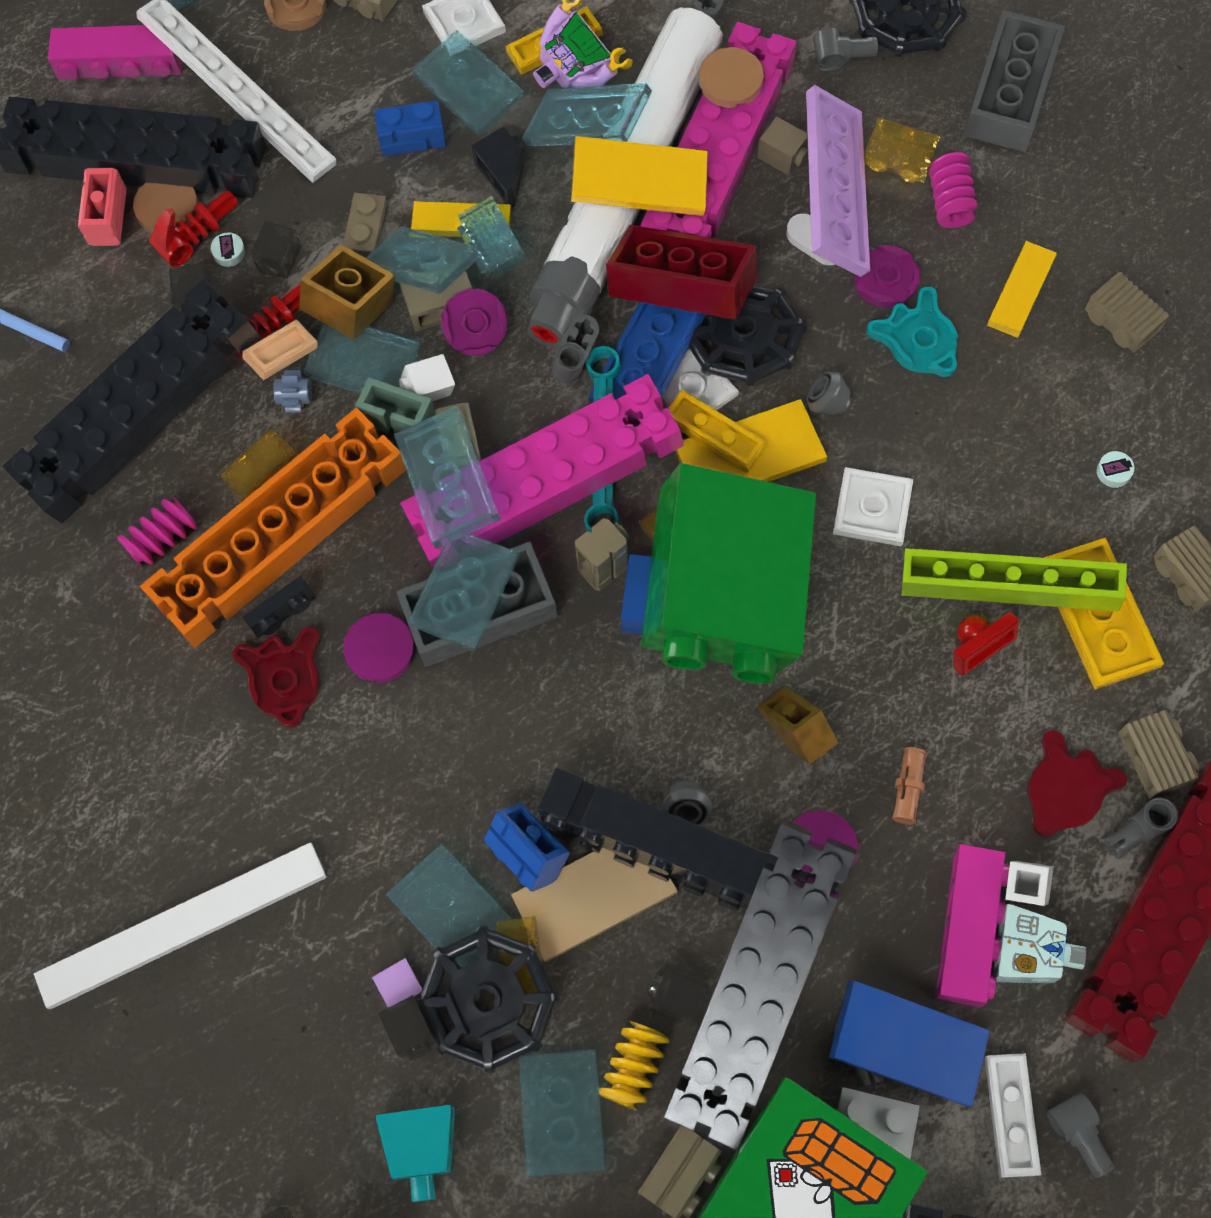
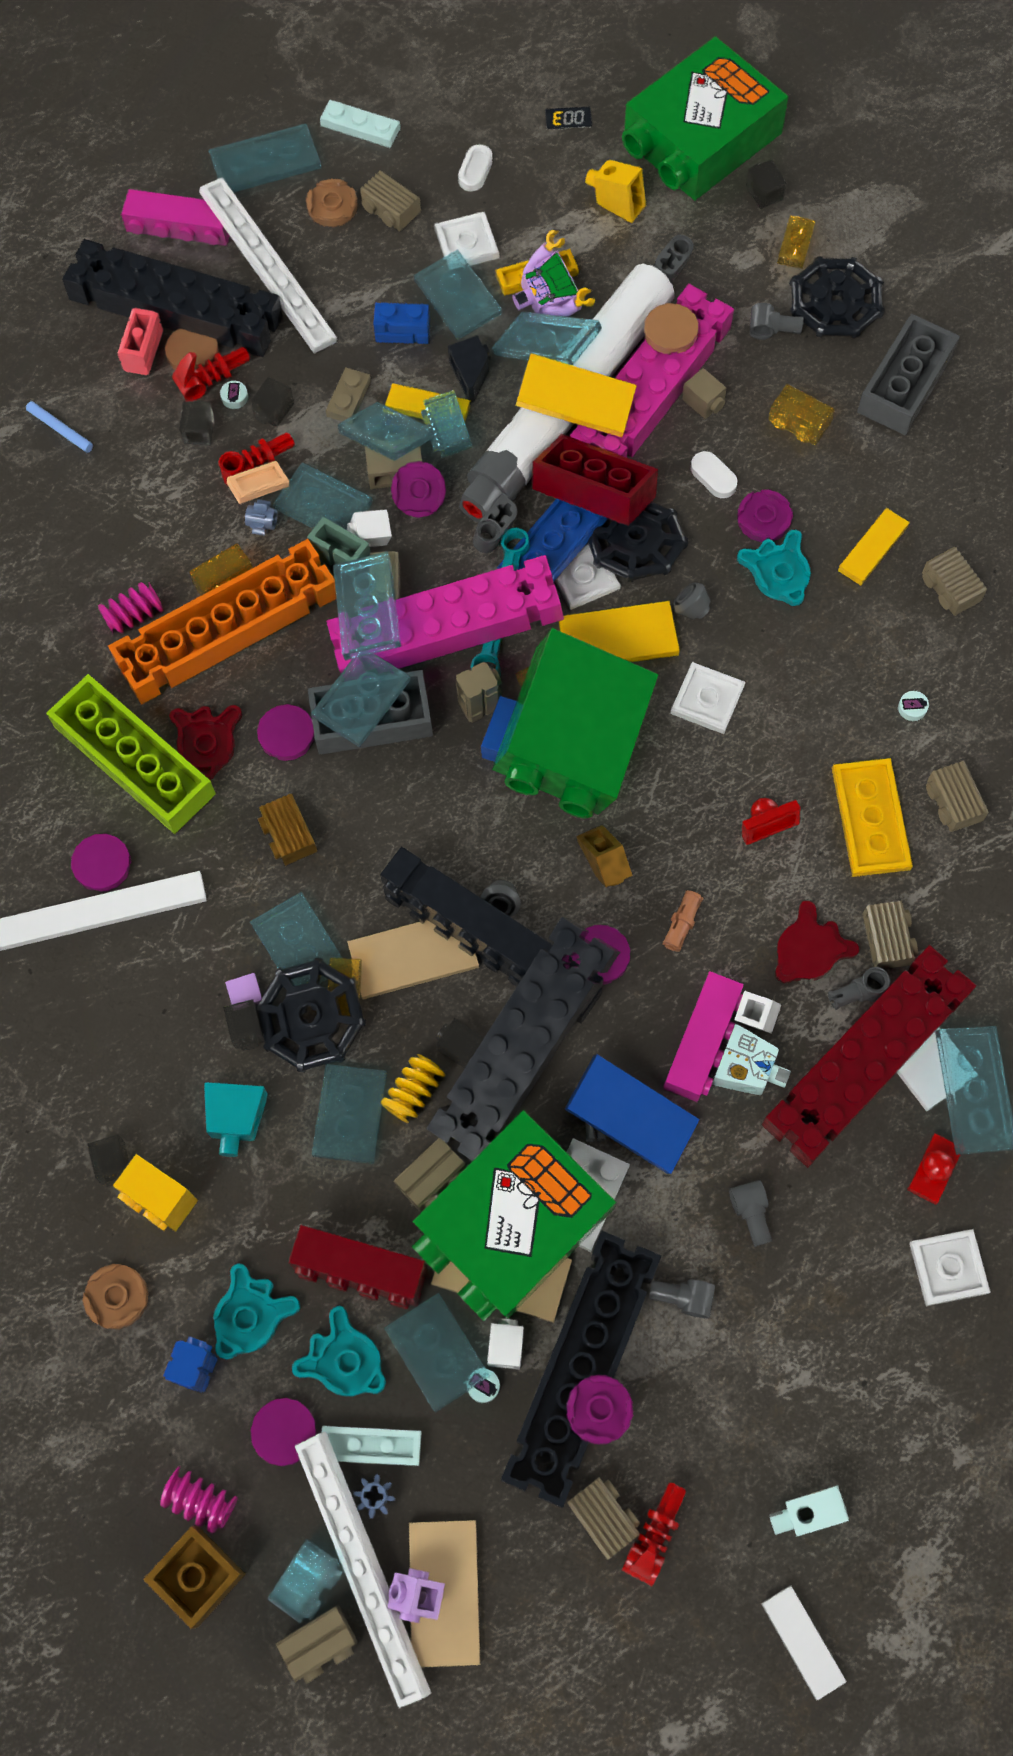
camera: 10 degrees right, 0 degrees up
(131, 401) = (131, 500): black brick -> none
(186, 856) = (101, 862): none -> magenta tile
(196, 713) = (131, 753): none -> lime brick
(271, 613) = (213, 685): black plate -> none
(346, 291) = (321, 445): pearl gold brick -> none
(407, 769) = (288, 829): none -> pearl gold brick
(526, 847) = (366, 905): blue brick -> none
(716, 431) = (593, 613): yellow tile -> none
(837, 182) = (740, 430): lavender plate -> none
(953, 190) = (835, 455): dark pink piece -> none
(1012, 1115) = (702, 1187): white tile -> none
(1014, 579) = (803, 774): lime brick -> none

